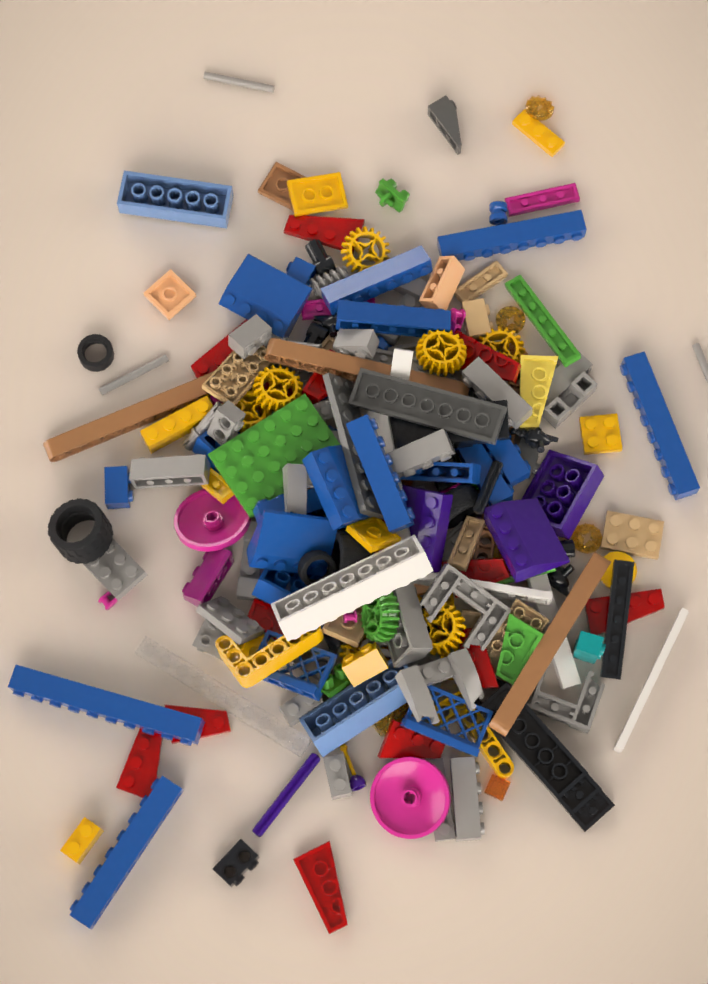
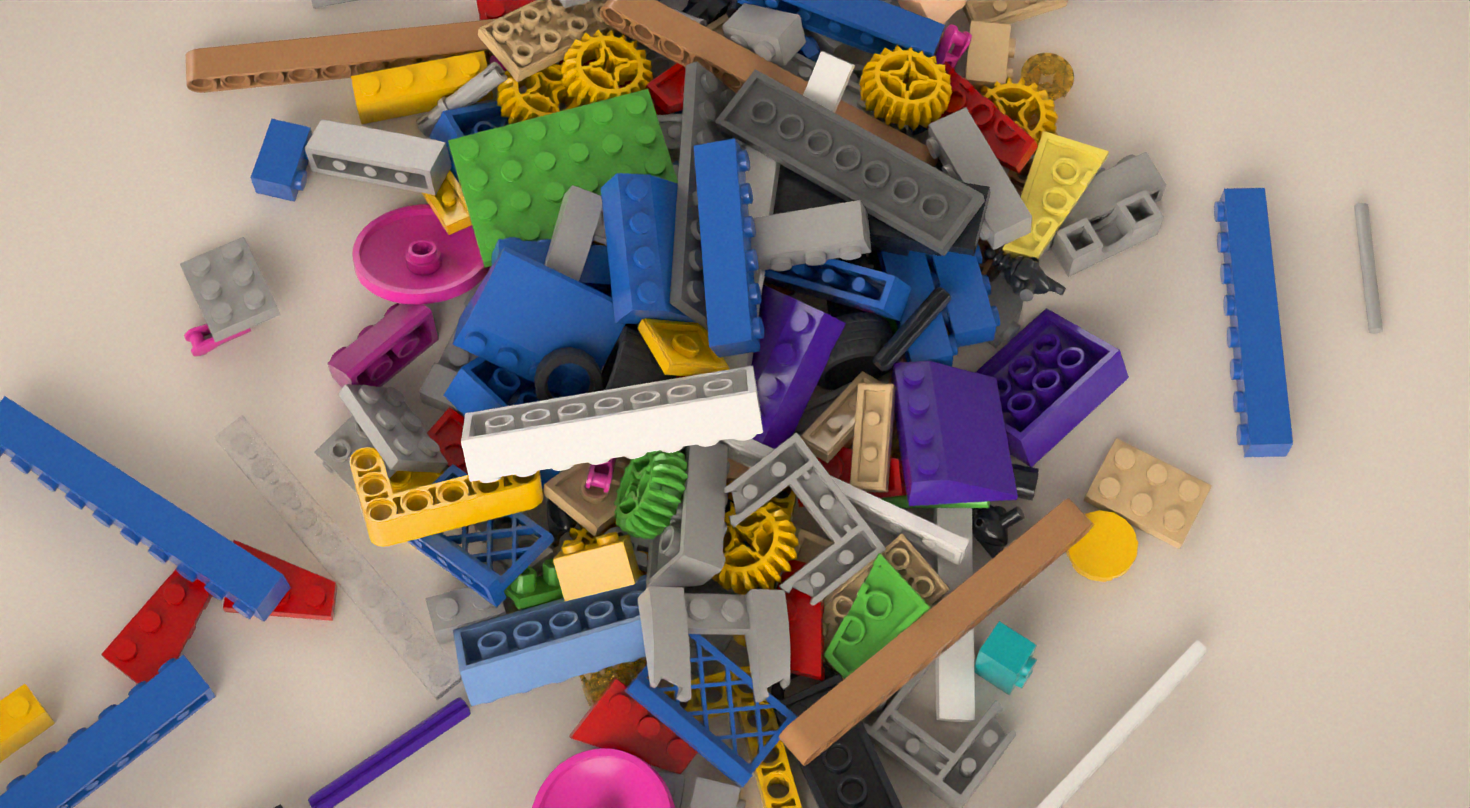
camera: 15 degrees right, 5 degrees down
(67, 517) = (183, 182): black tyre -> none
(226, 423) = (497, 97): light grey brick -> none
(337, 776) = (488, 750): light grey brick -> none
(356, 781) = (519, 770): hinge -> none
(485, 551) = (873, 437): none -> tan tile
(542, 321) = (1102, 90): bright green plate -> none
(590, 546) = (1064, 489): clear yellow gear -> none
(600, 434) = (1145, 307): yellow plate -> none
(617, 619) = (1073, 626): black plate -> none
(640, 606) = (1075, 613): red wing -> none

